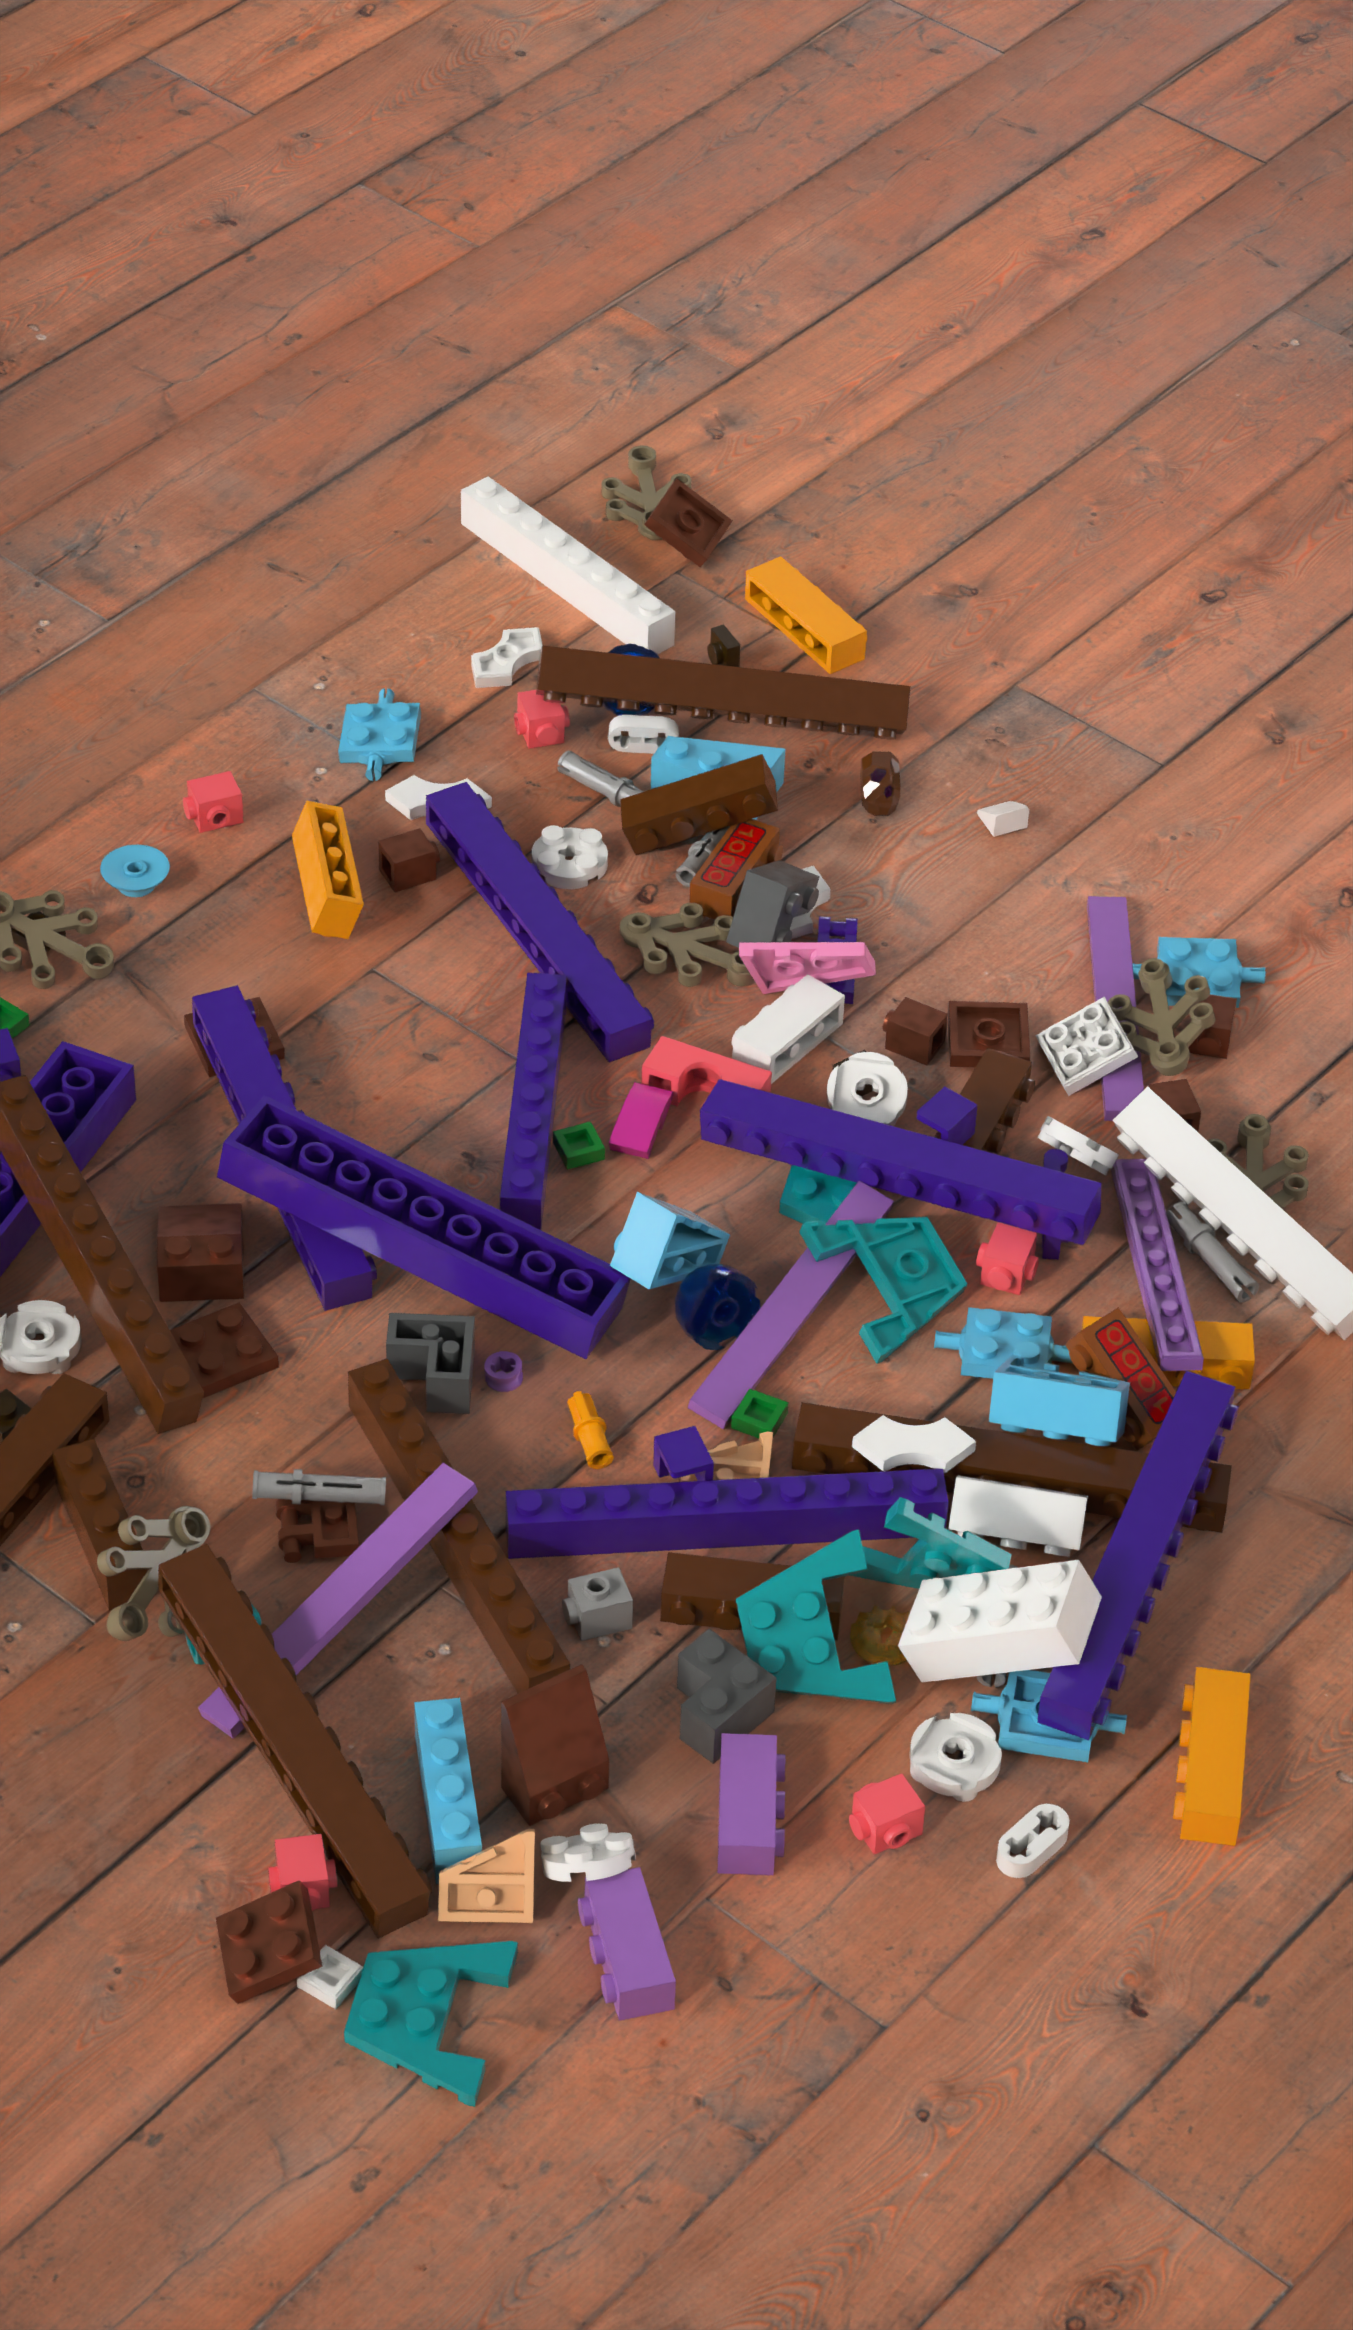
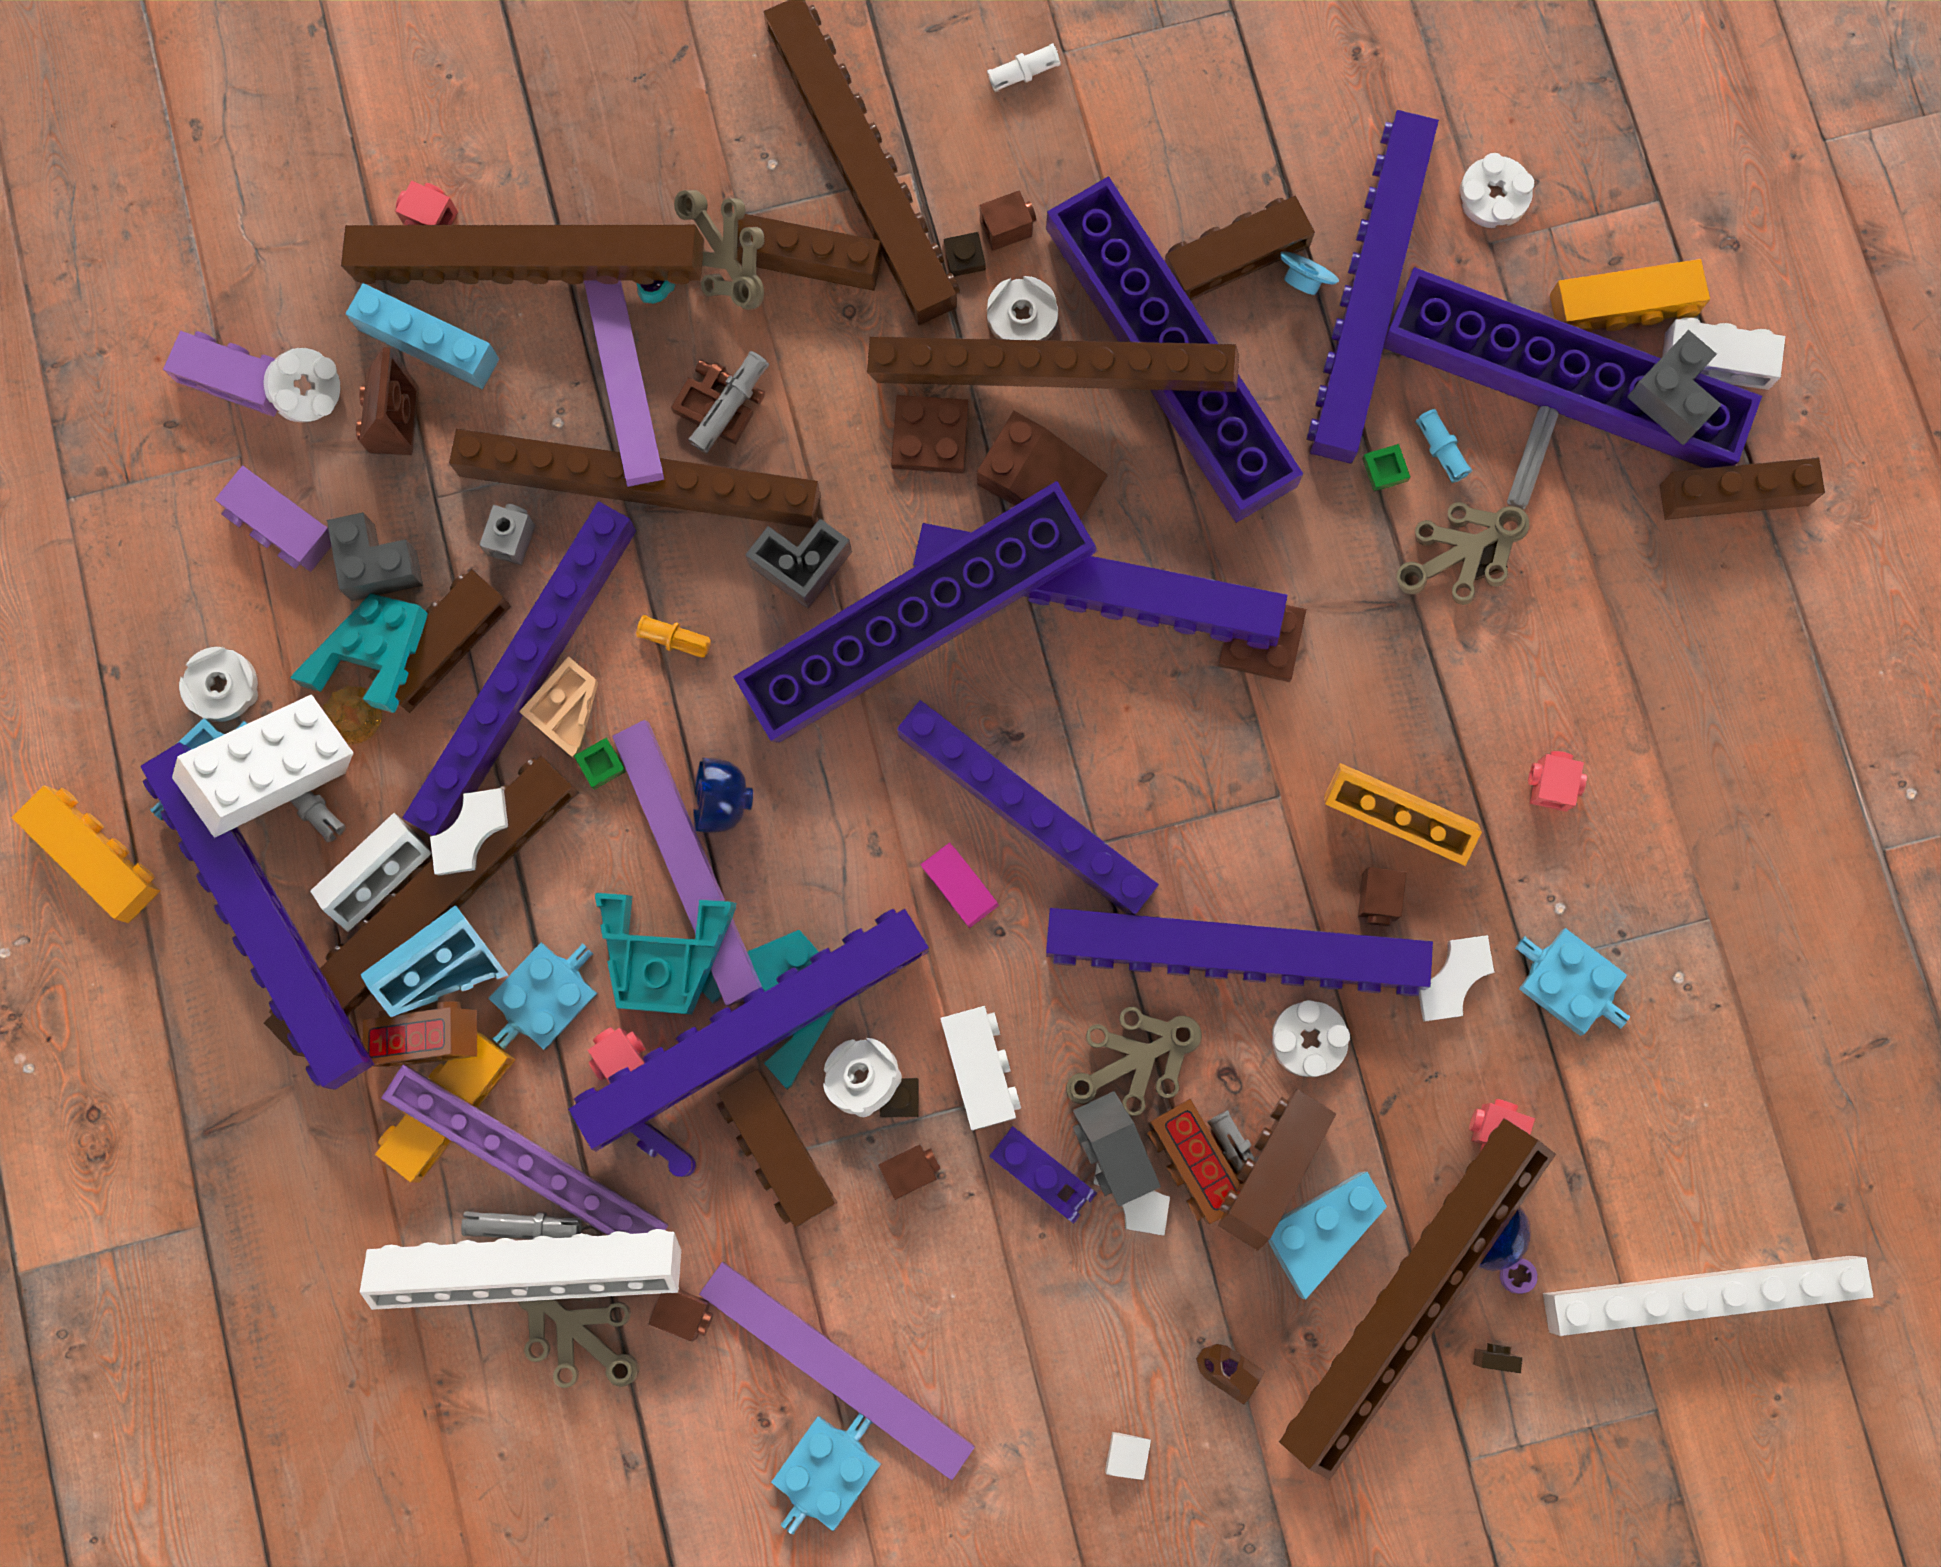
camera: 130 degrees right, 35 degrees up
(135, 869) = (1518, 656): medium azure piece -> none
(268, 1942) = (385, 158): copper plate -> none
(333, 1980) = (346, 190): white tile -> none
(407, 2003) = (290, 220): teal wing -> none
(491, 1884) = (328, 314): light nougat wing -> none
(499, 664) = (1622, 1180): white tile -> none
(506, 1362) = (782, 622): medium lavender bush -> none
(578, 1145) = (961, 816): green plate -> none
(596, 778) = (1339, 1141): light grey pin -> none
(642, 463) = (1776, 1456): dark tan plant -> none
(642, 732) = (1426, 1206): white beam -> none
(665, 1243) = (782, 789): medium azure wedge -> none
(682, 1454) = (570, 659): dark purple panel -> none
(688, 522) = (1704, 1455): copper plate -> none
(692, 1069) = (935, 981): coral arch -> none
(786, 963) = (1021, 1129): bright pink wing -> none
(805, 615) = (1506, 1475): light orange brick -> none
(887, 1814) = (202, 601): coral brick -> none
(934, 1555) = (347, 776): teal wing -> none
(950, 1115) = (757, 1090): dark purple panel -> none
(986, 1025) = (868, 1232): copper plate -> none
(1026, 1834) = (129, 686): white beam -> none
(1077, 1145) = (693, 1182): white plate -> none
(1086, 1046) = (795, 1298): white tile -> none
(1171, 1053) = (772, 1380): dark tan plant -> none
(1216, 1039) = (750, 1426): copper brick -> none

